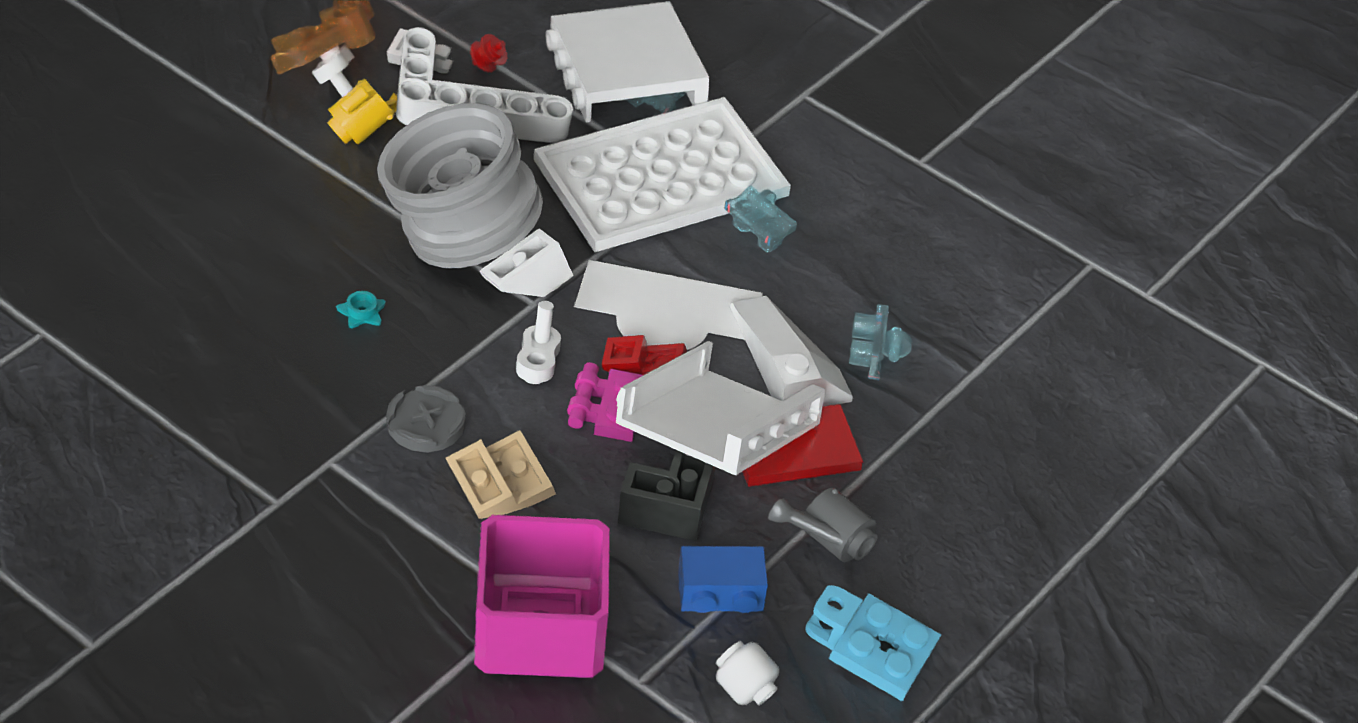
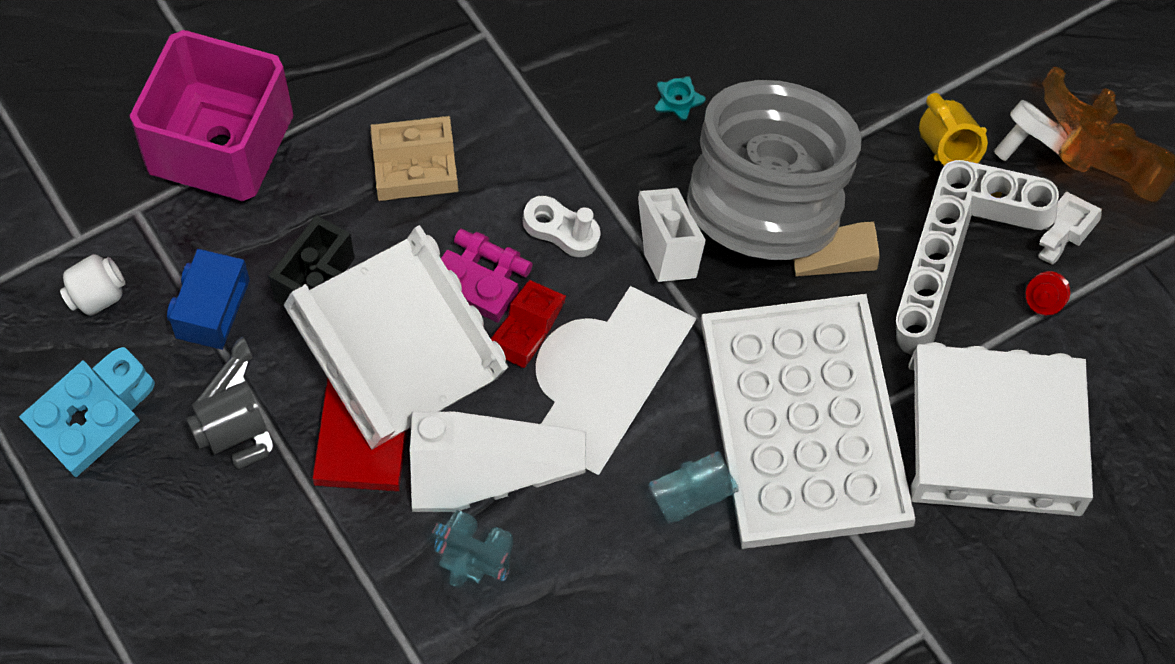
camera: 115 degrees right, 15 degrees up
(425, 419) = (511, 117): dark grey tile -> none

